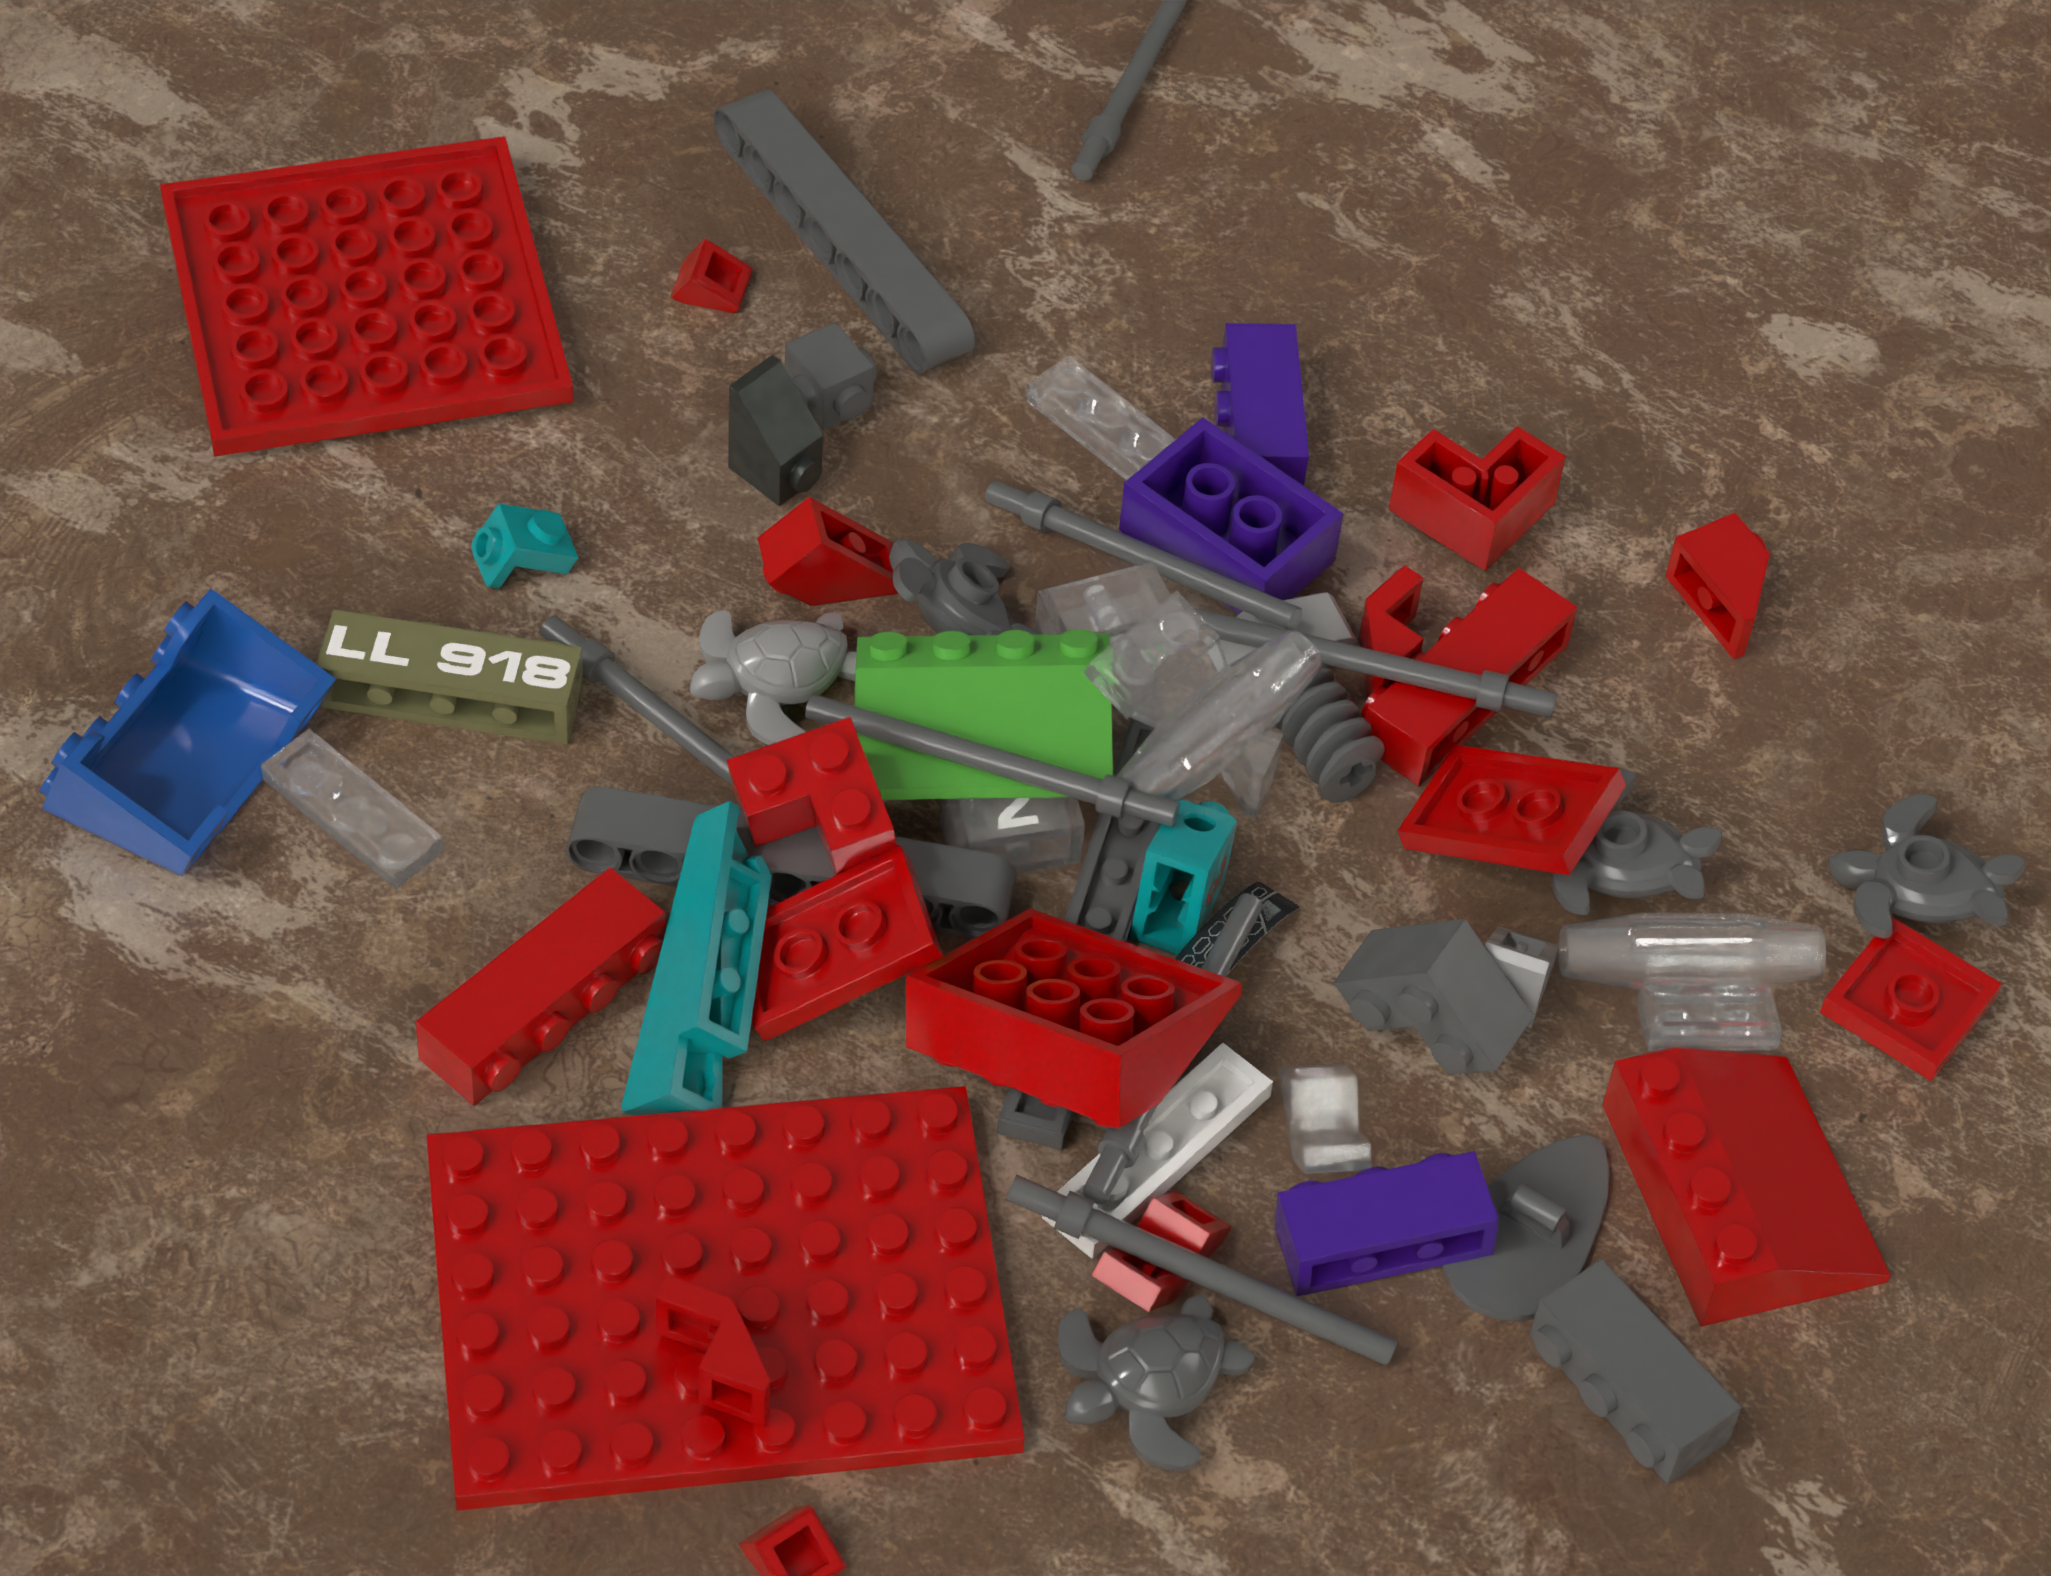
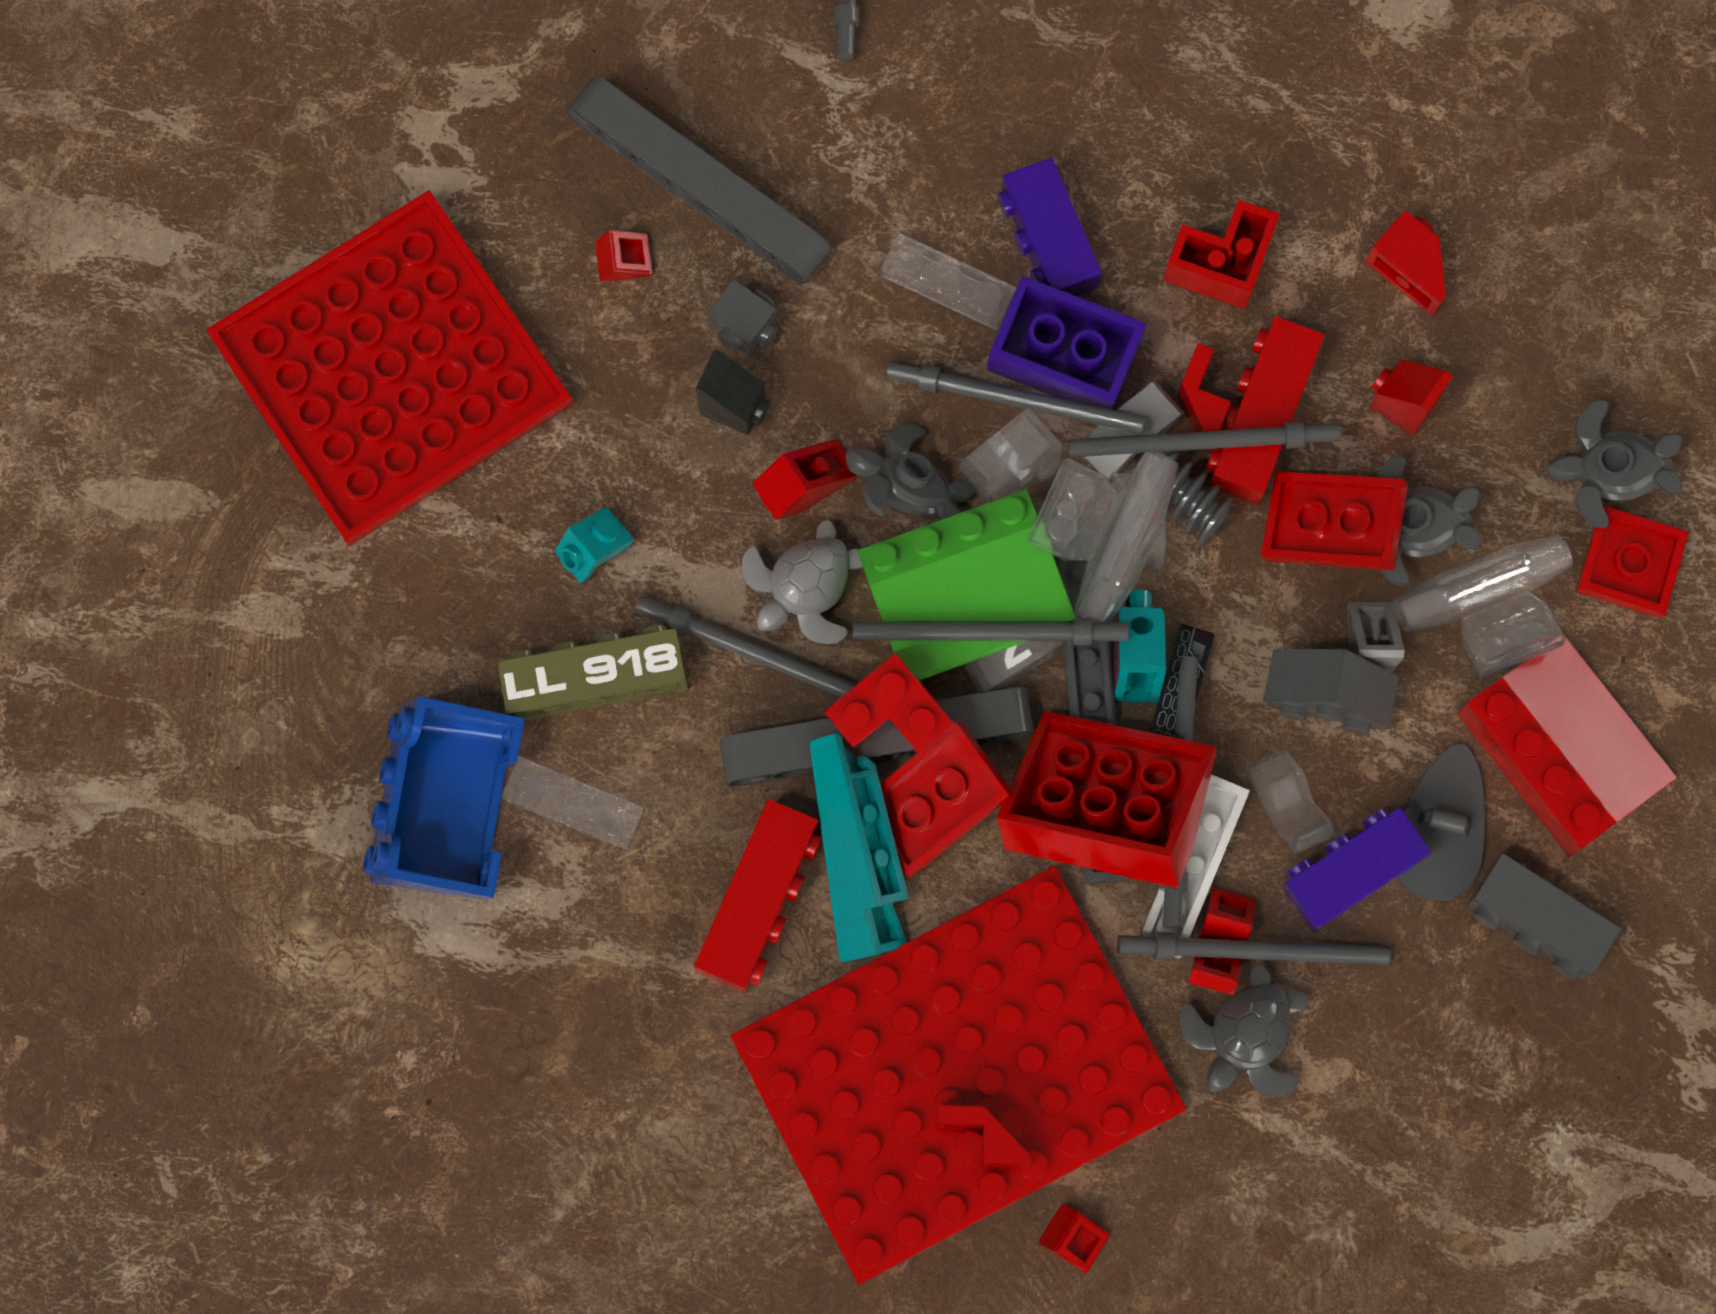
camera: 15 degrees left, 25 degrees up
(1670, 713) = (1409, 393): none -> red slope

